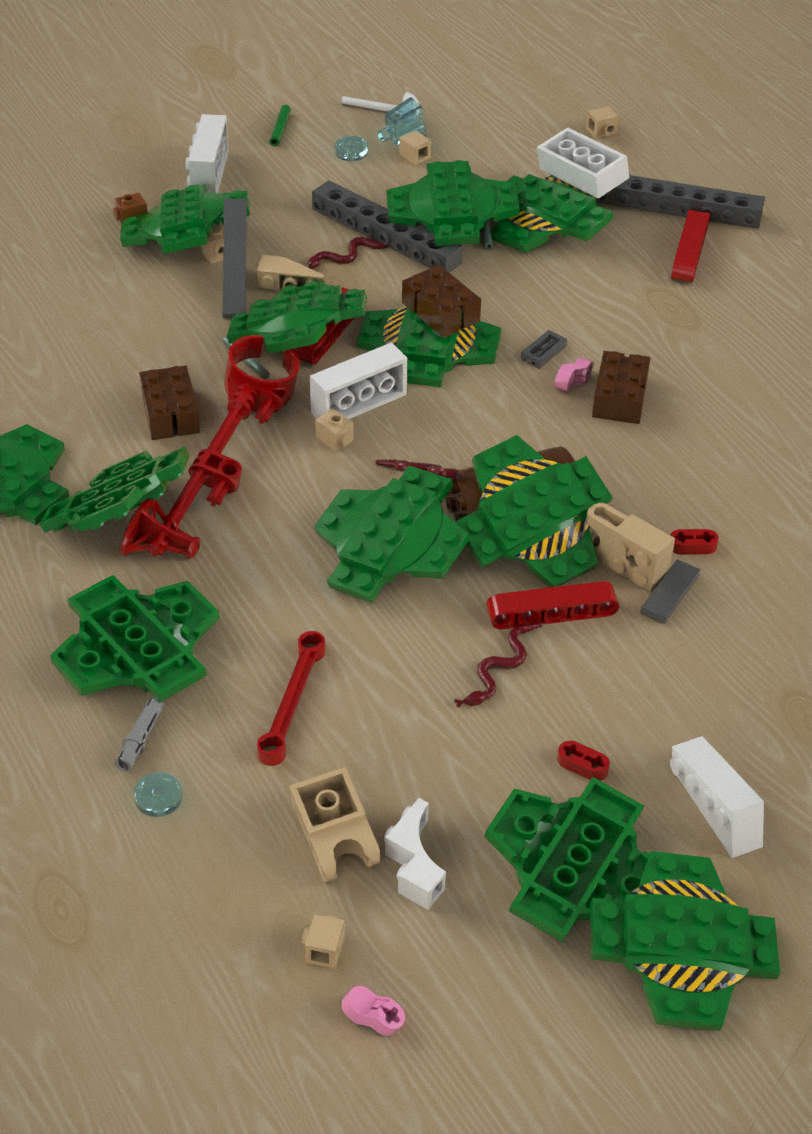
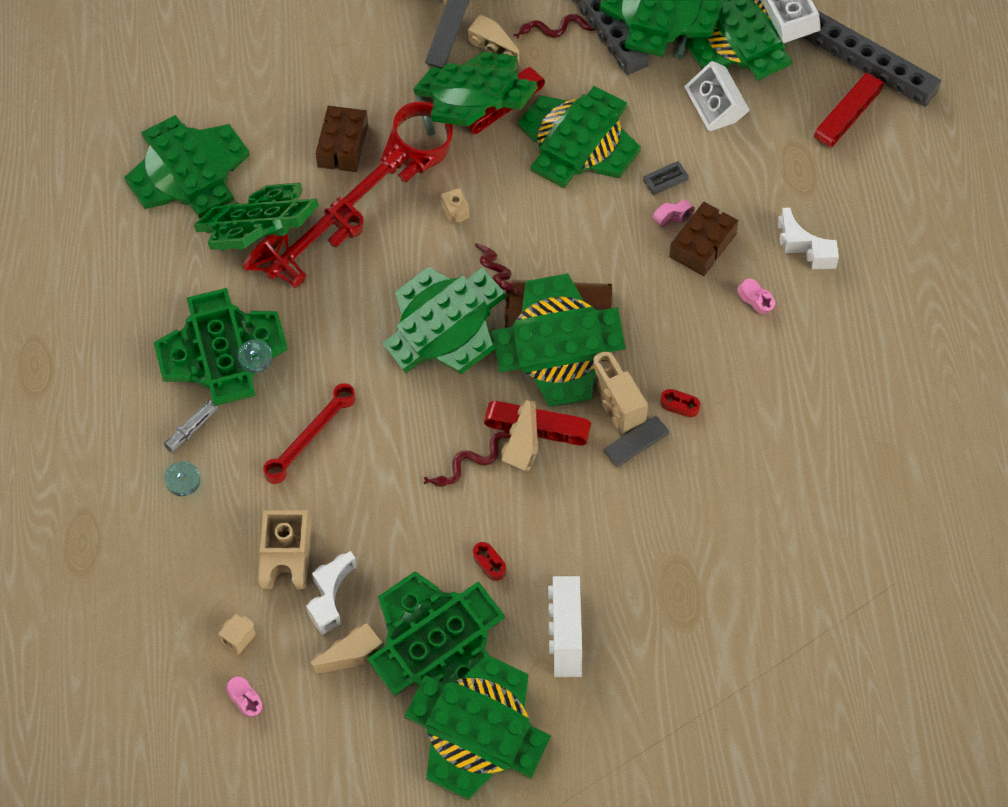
camera: 25 degrees right, 15 degrees up
(187, 631) = (257, 364): none -> clear light blue piece
(360, 383) = (492, 170): white brick -> none
(439, 300) = (593, 108): reddish brown piece -> none
(480, 912) = (348, 651): none -> tan slope
(552, 267) = (716, 97): none -> white slope
(554, 625) = (523, 442): none -> tan slope
(701, 421) = (753, 294): none -> bright pink piece
(714, 363) = (820, 251): none -> white arch

